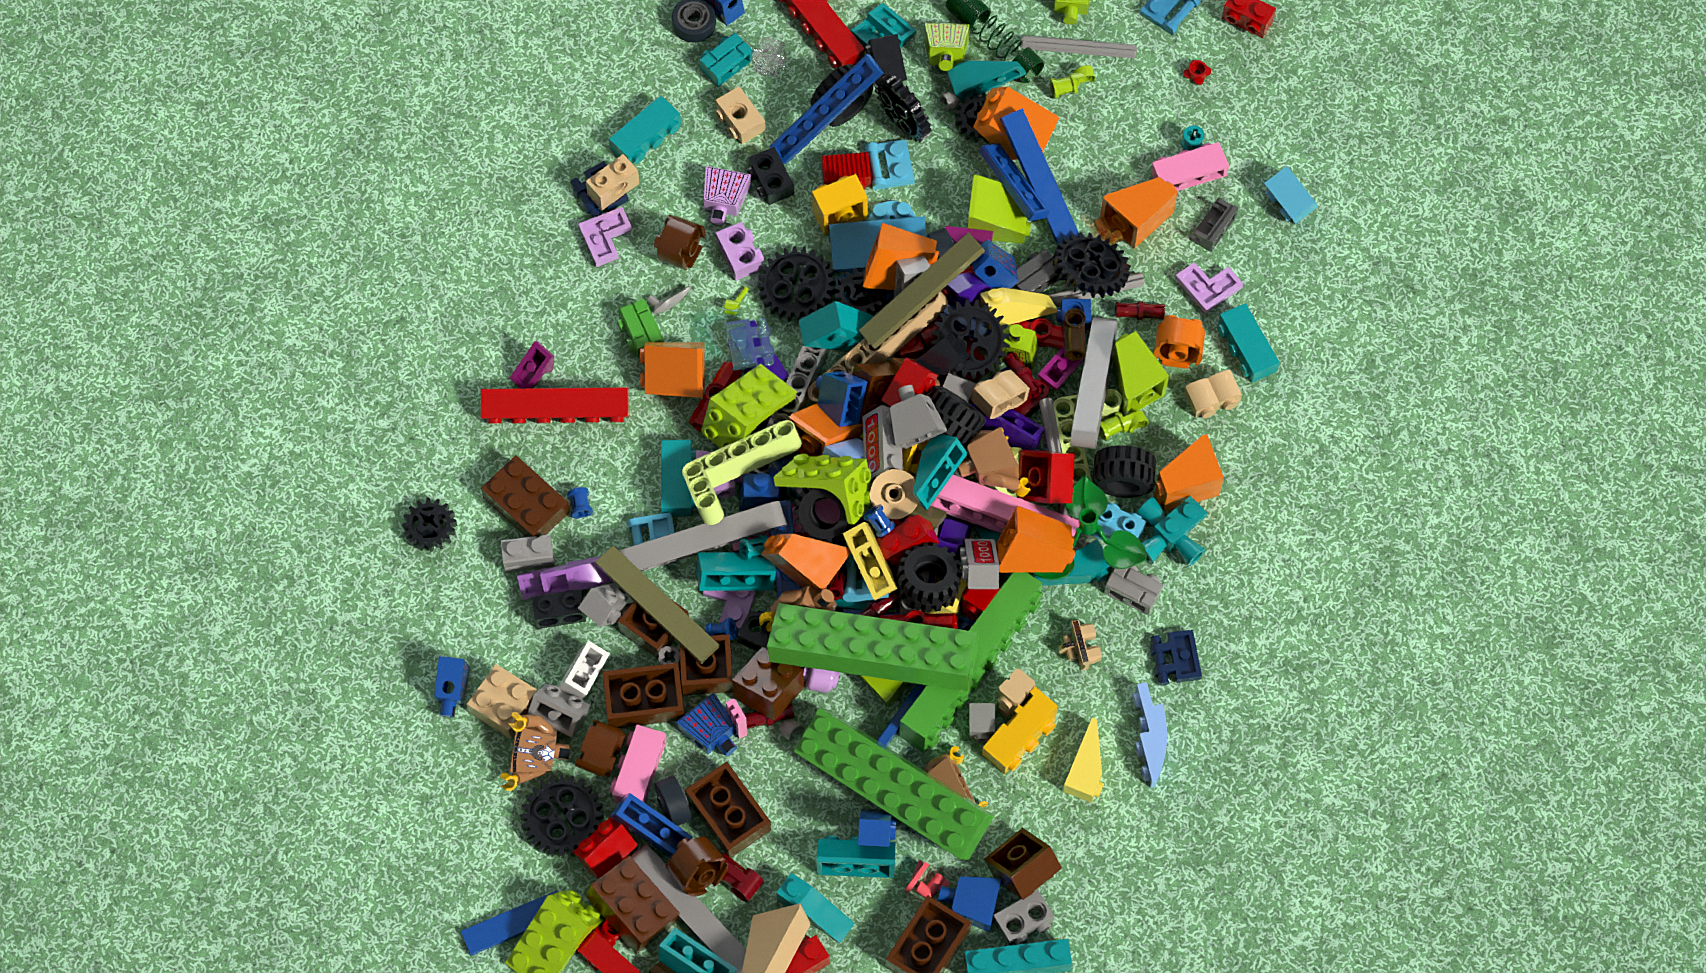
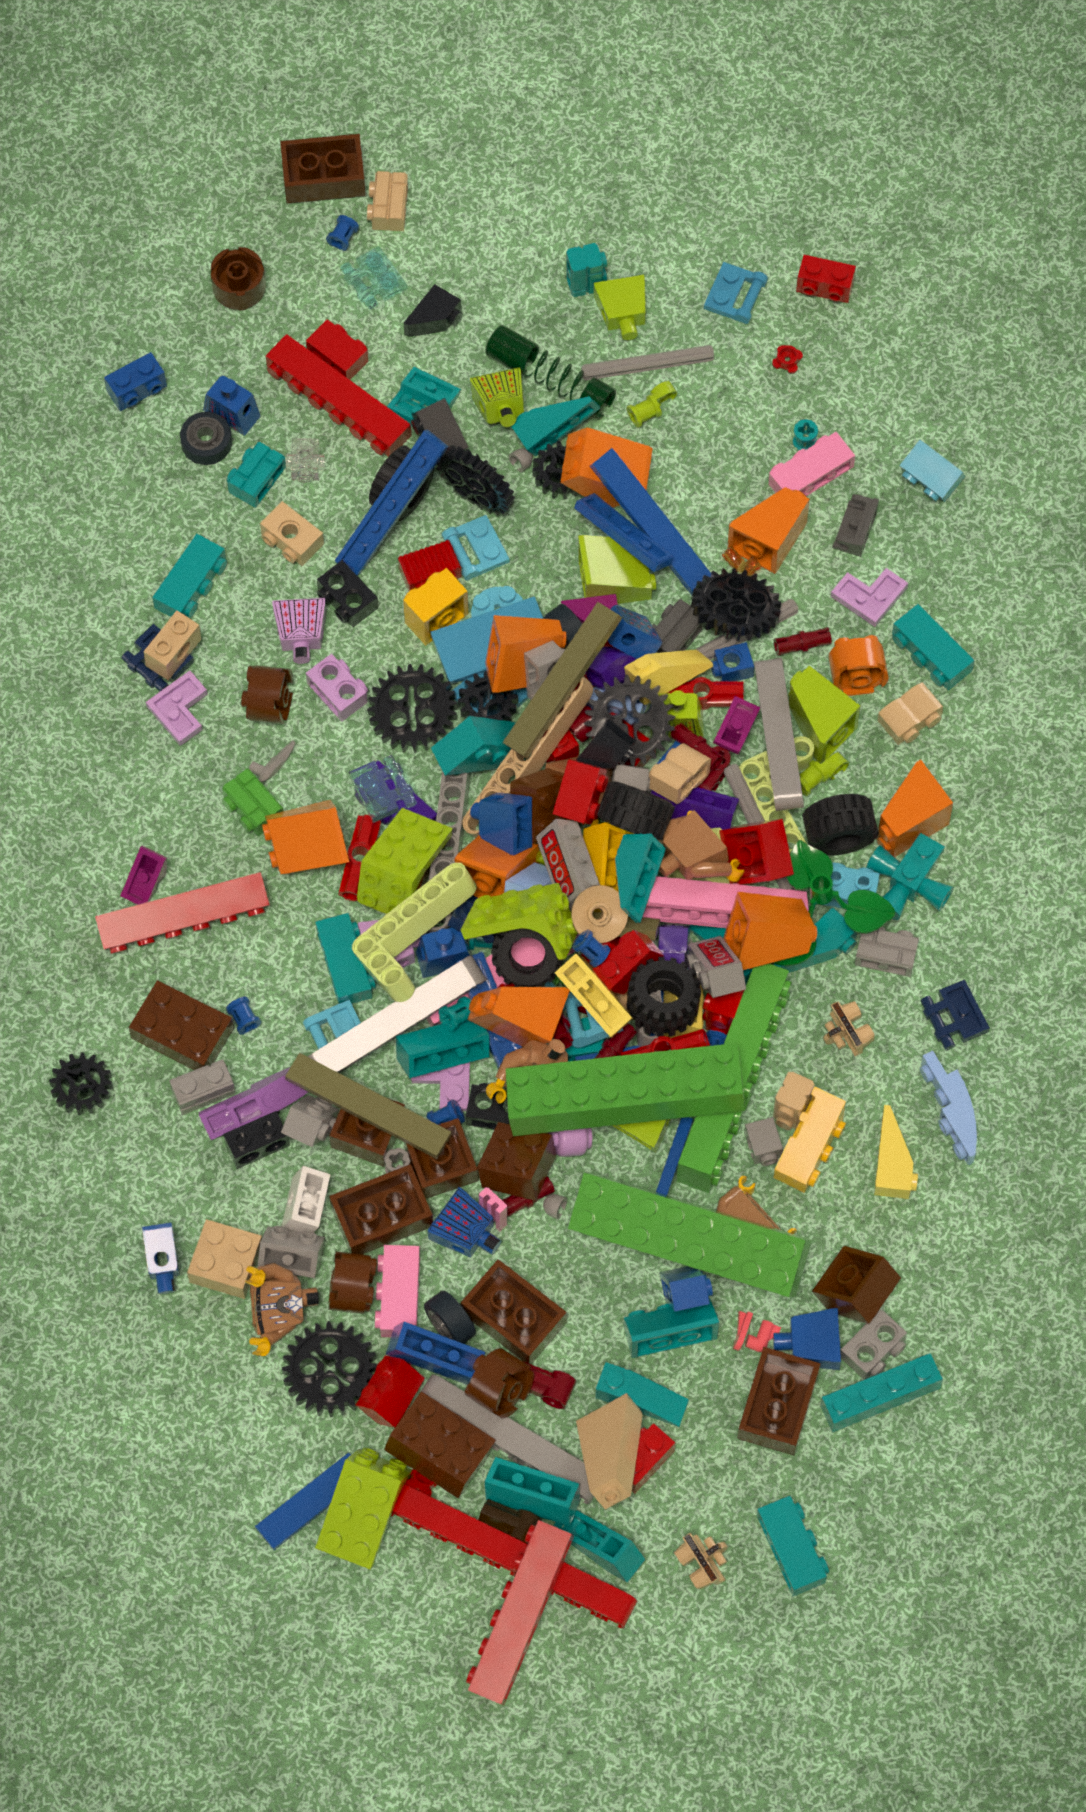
camera: 15 degrees left, 0 degrees up
(733, 305) = (347, 750): lime hand -> none
(914, 418) = (598, 824): light grey torso -> none
(1074, 334) = (741, 687): dark brown piece -> none

